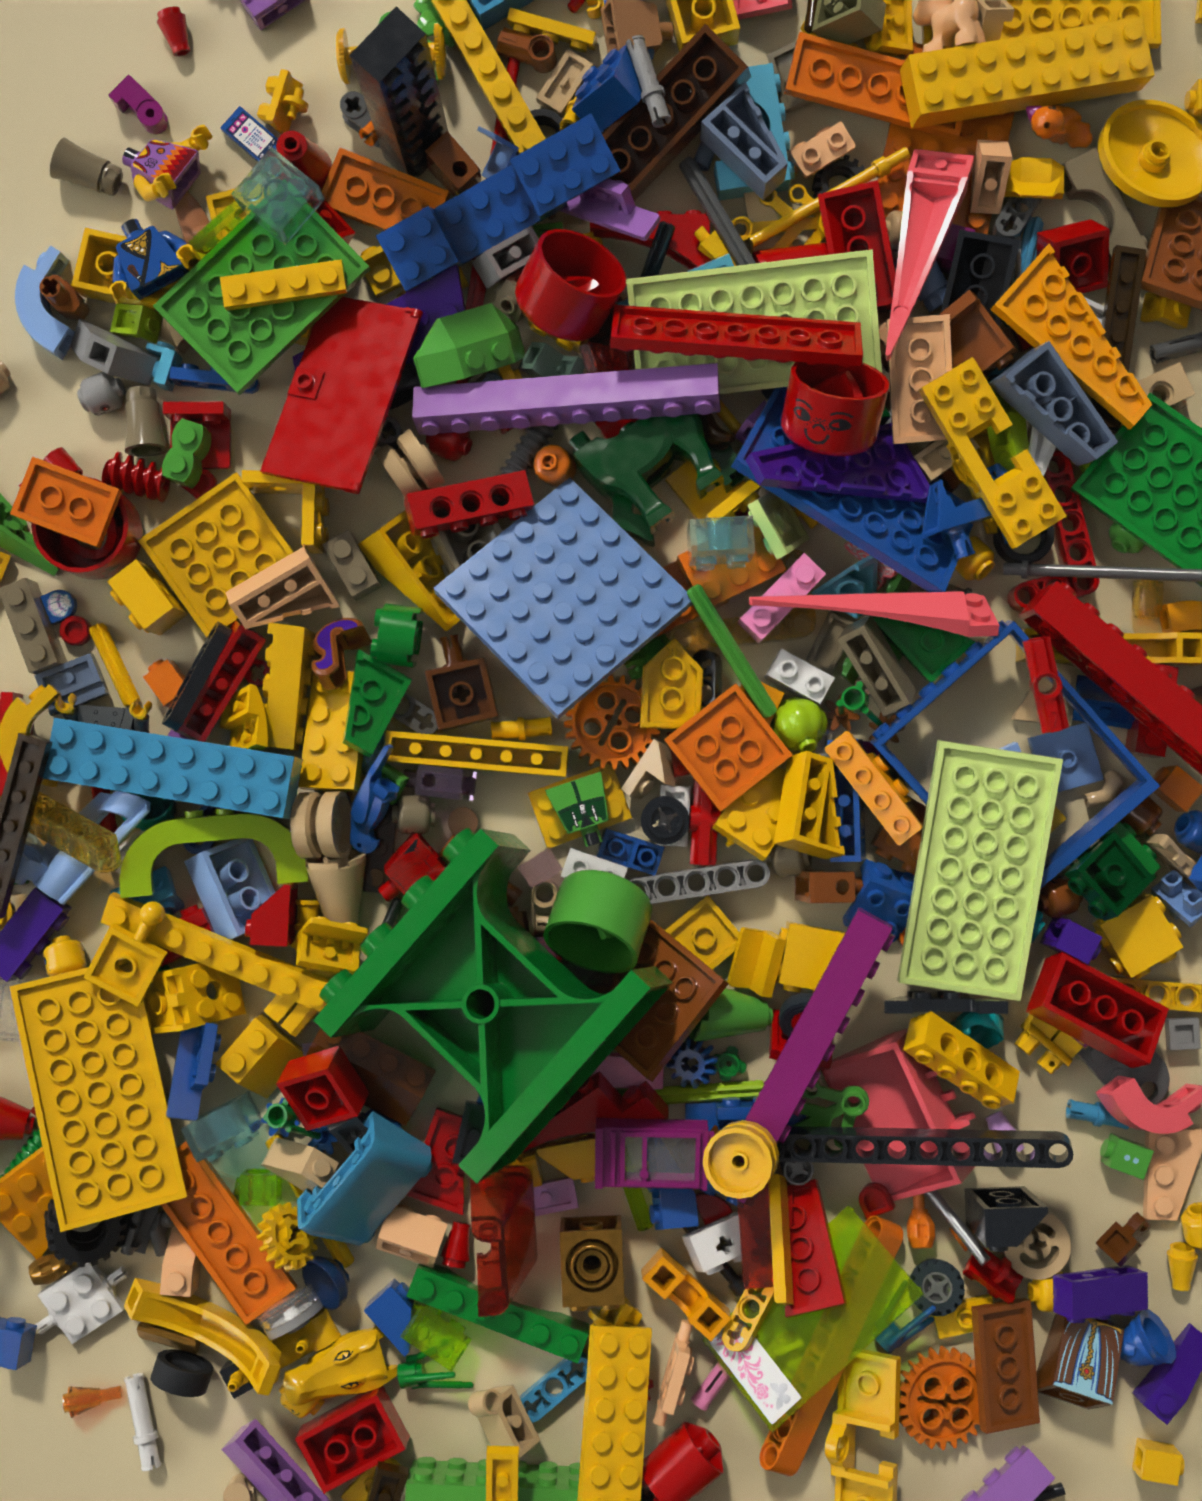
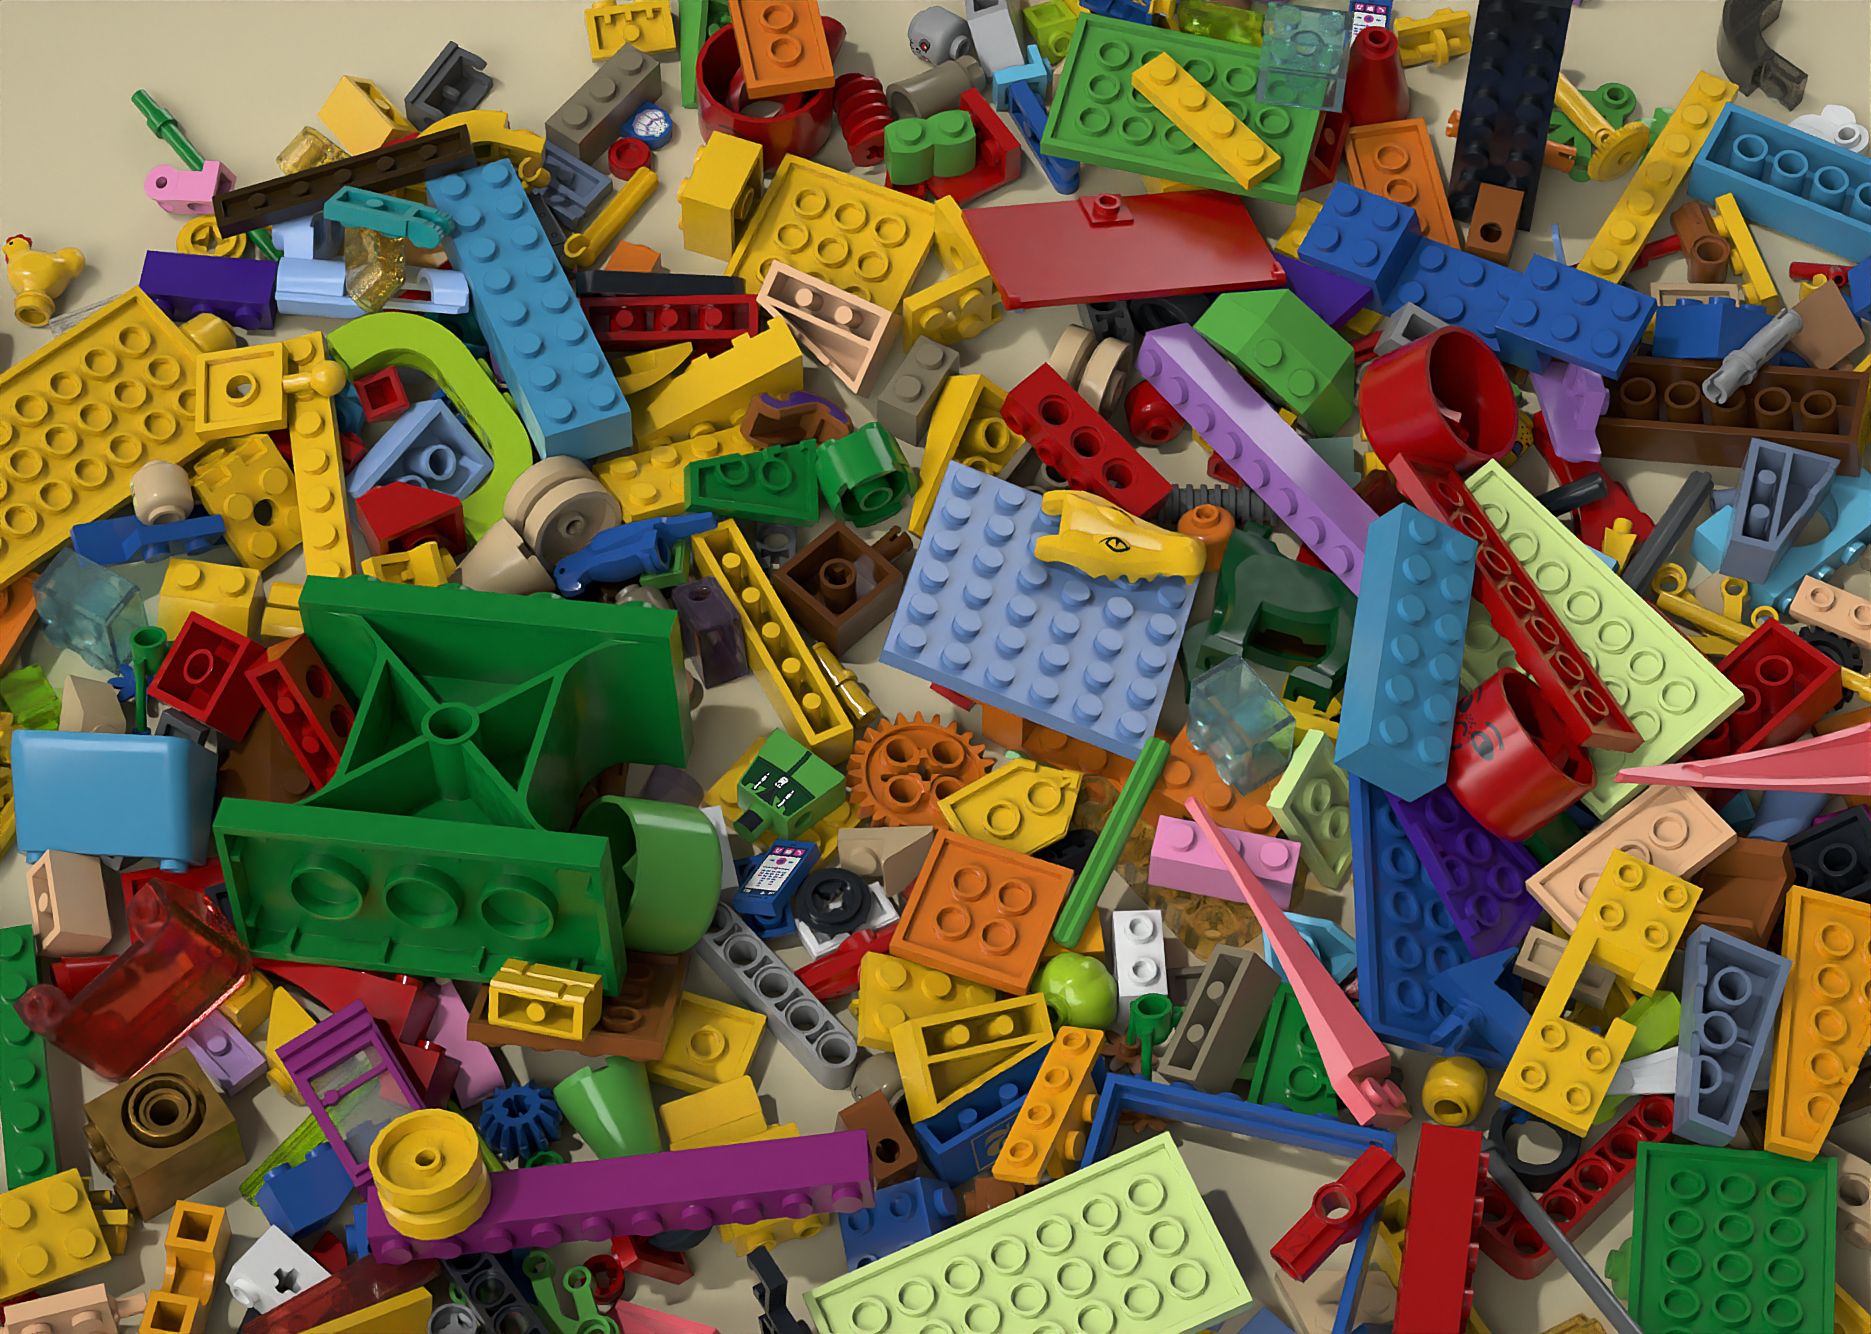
camera: 55 degrees right, 30 degrees down
(61, 818) = (389, 215): none -> teal hinge
(171, 880) = (382, 395): none -> red slope
(174, 1052) = (161, 493): none -> tan head
(383, 1052) = (304, 705): none -> red brick
(545, 529) = (1115, 543): none -> yellow animal
(632, 842) = (776, 877): none -> tile
(661, 1030) = (545, 999): none -> yellow brick
(751, 425) = (1406, 653): none -> dark azure brick

